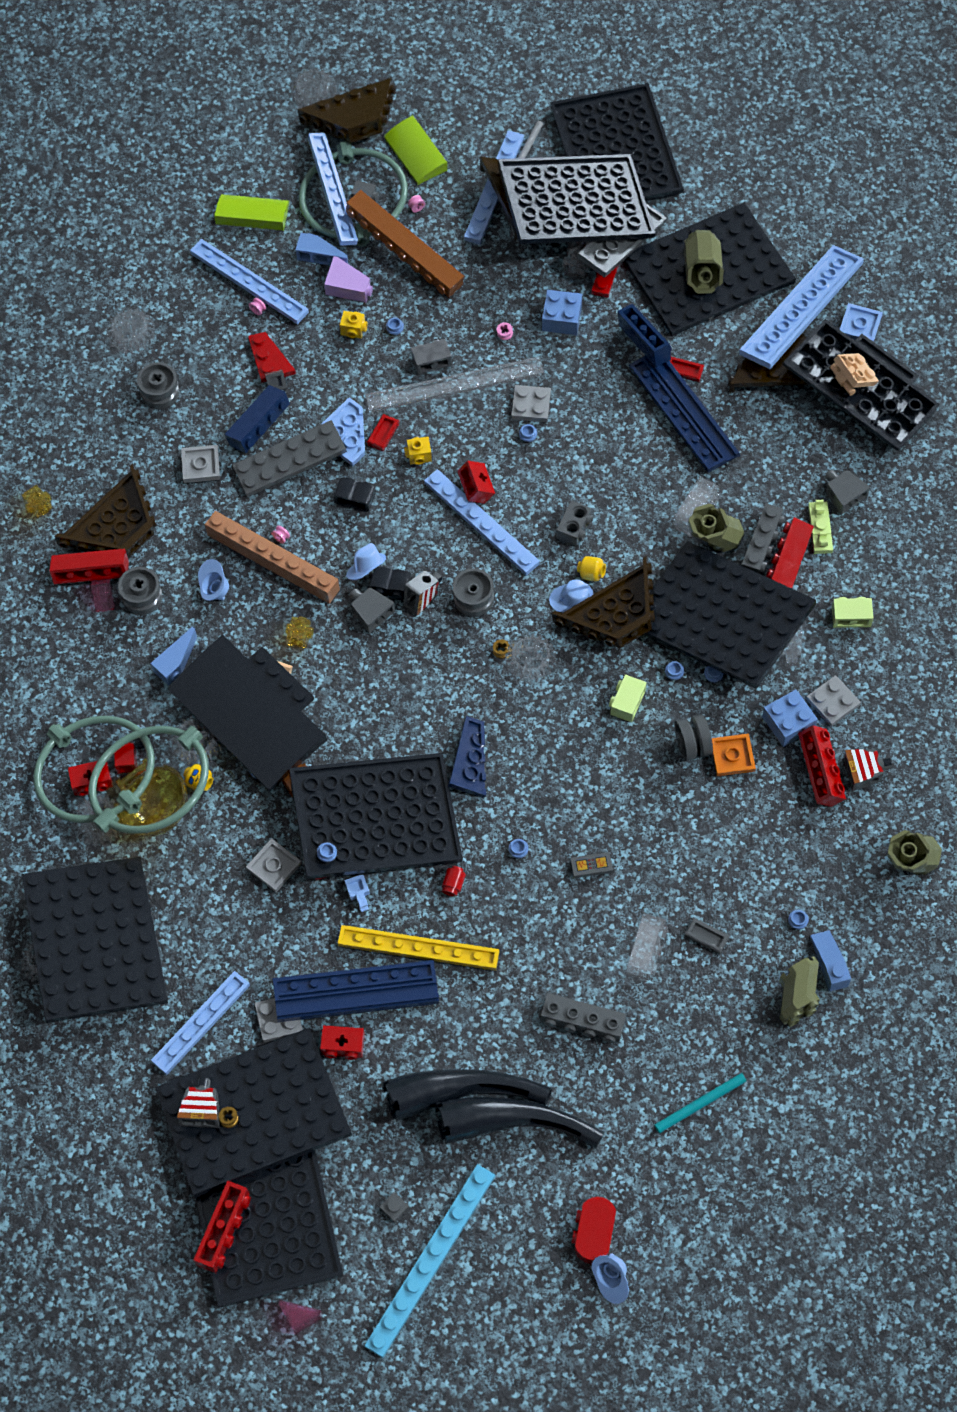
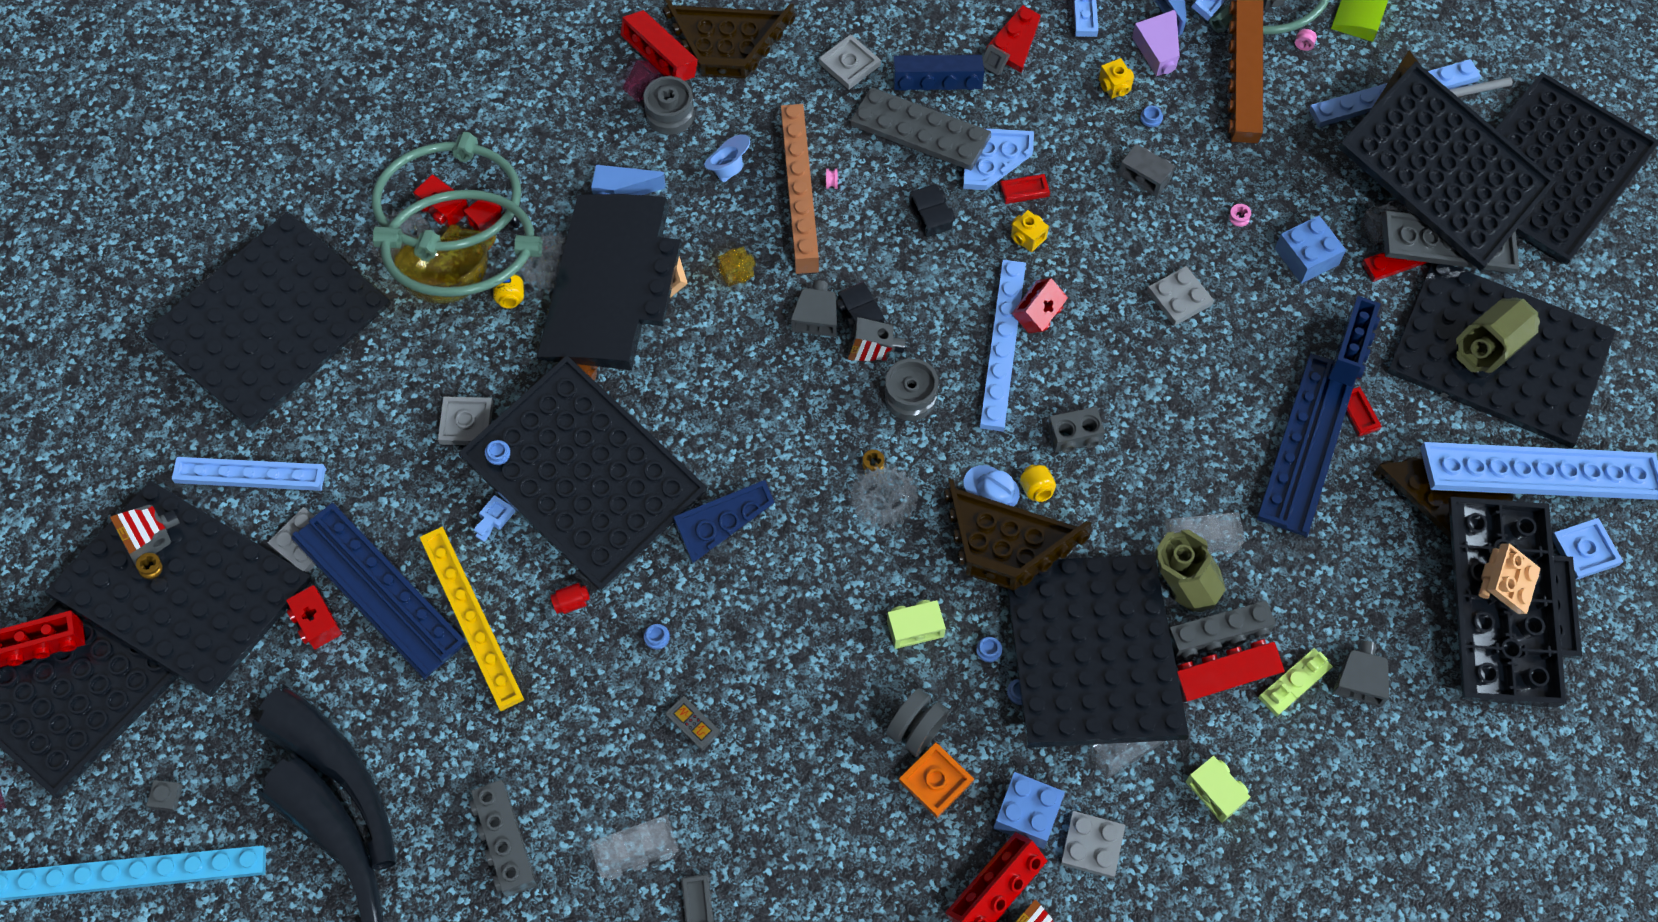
camera: 50 degrees right, 0 degrees up
(365, 561) = (863, 268): light blue piece -> none
(454, 384) = (1137, 213): clear plate -> none
(528, 433) = (1142, 315): medium blue plate -> none

